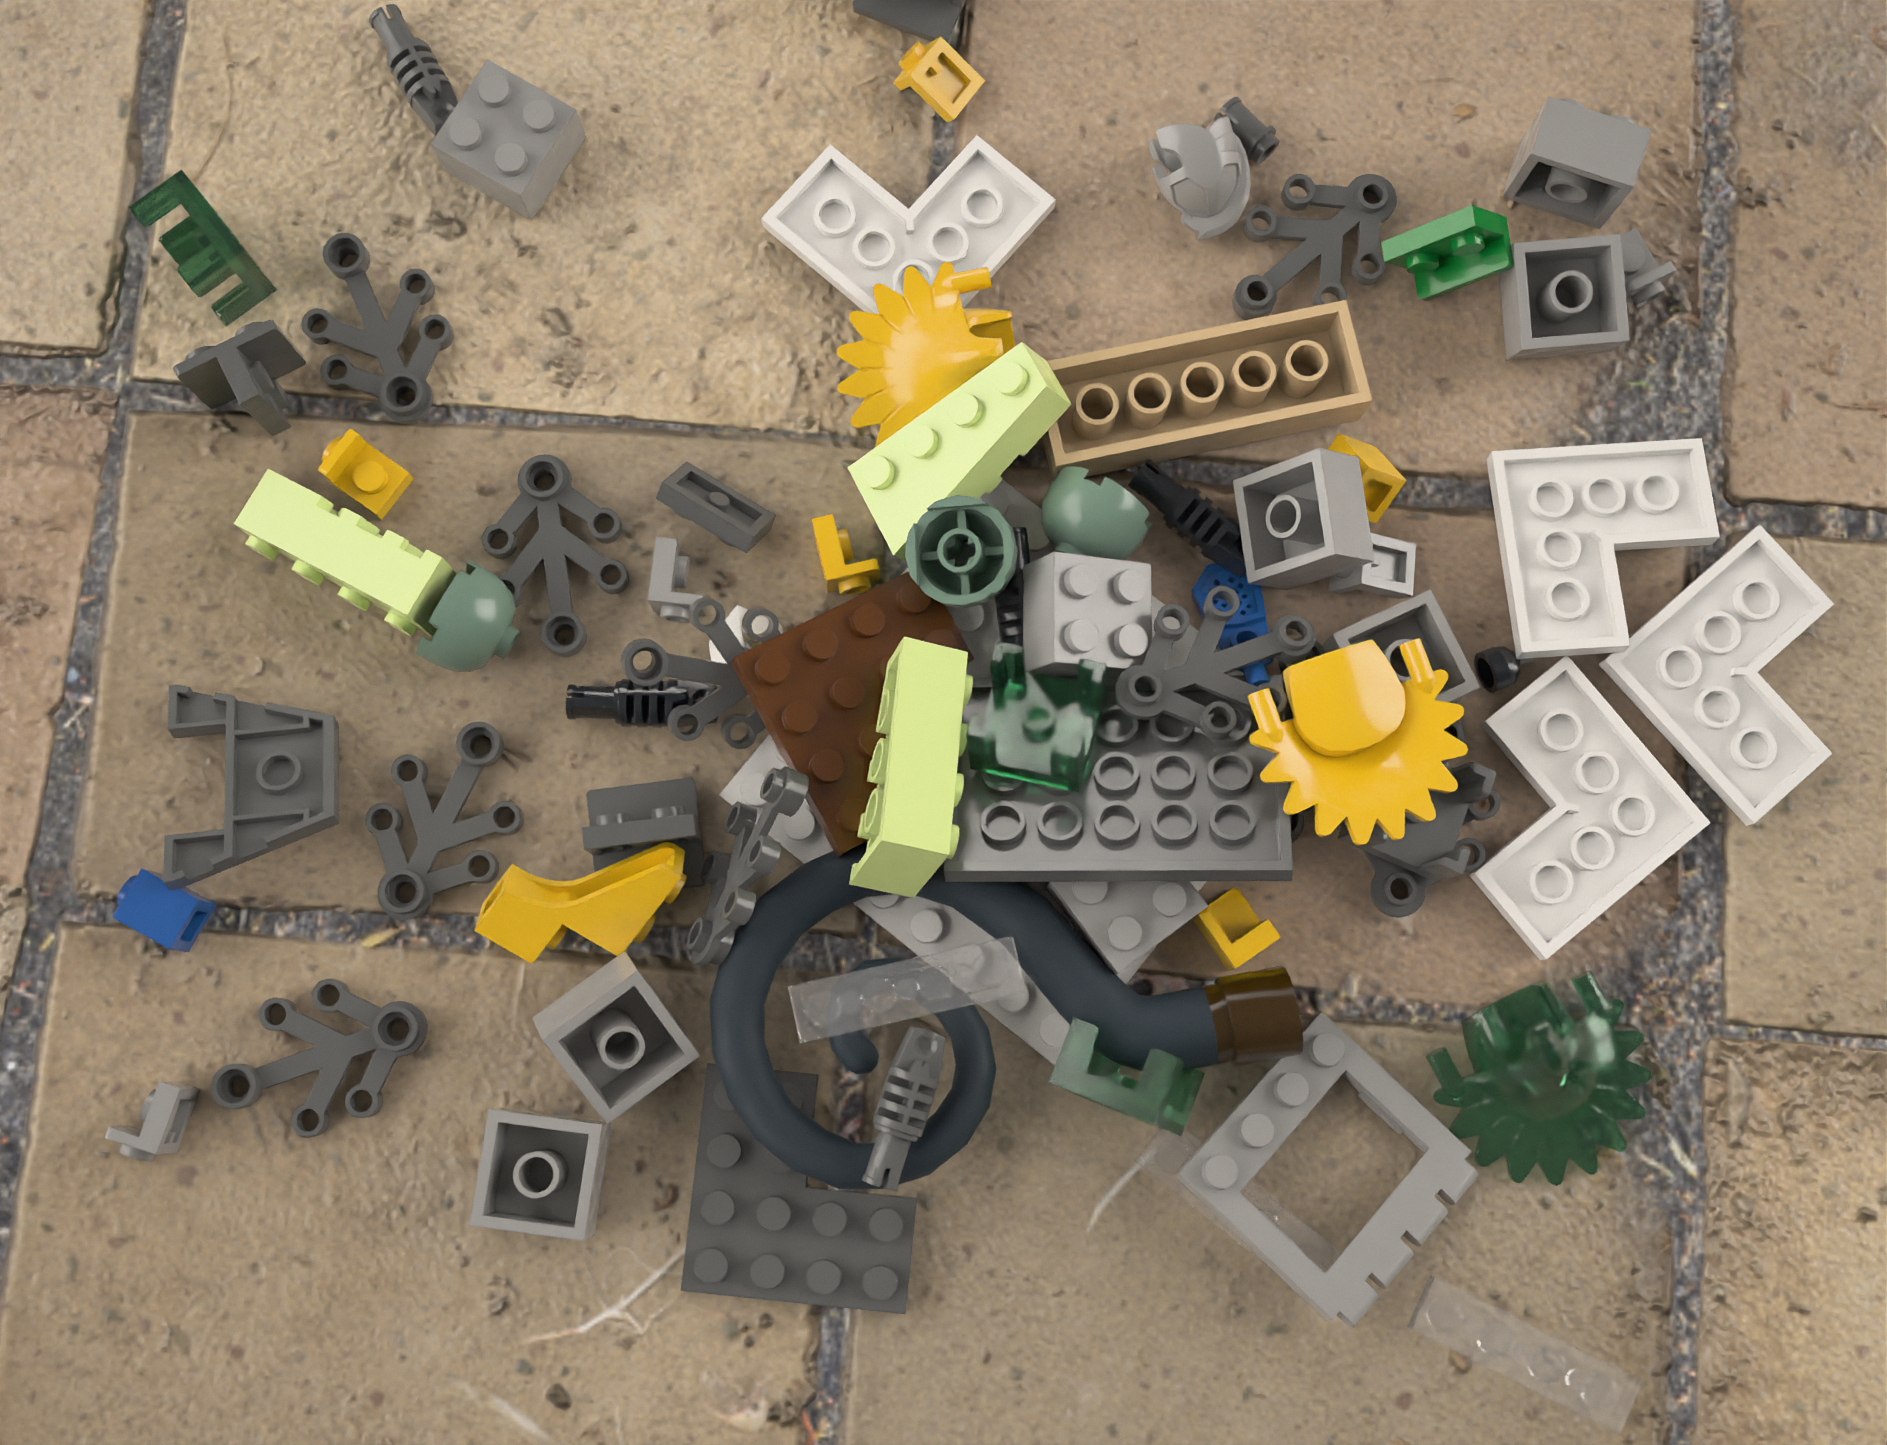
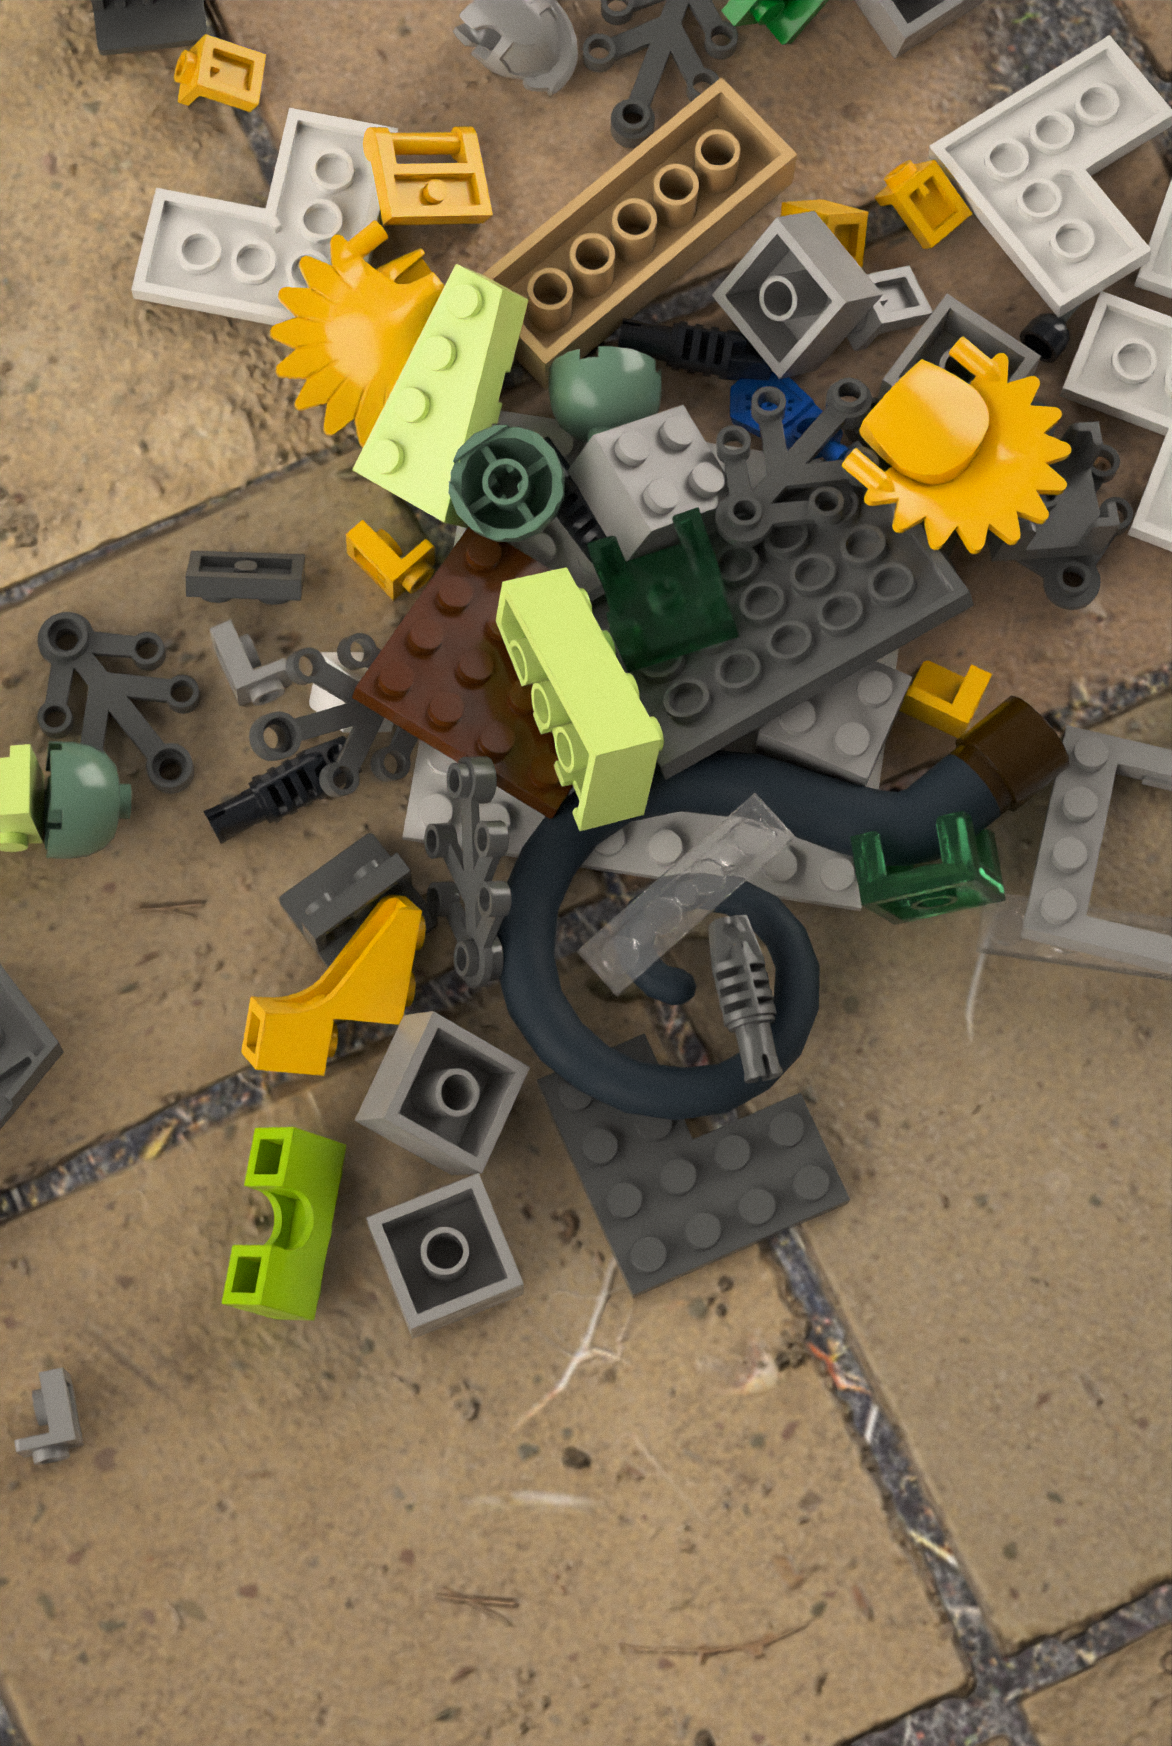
camera: 30 degrees left, 5 degrees down
(332, 1054) = (177, 1266): dark grey plant -> none
(406, 1109) = (302, 1182): none -> lime arch
(438, 829) = (158, 1012): dark grey plant -> none
(1050, 266) = (428, 190): none -> yellow plate
(1460, 495) = (924, 201): none -> yellow bracket

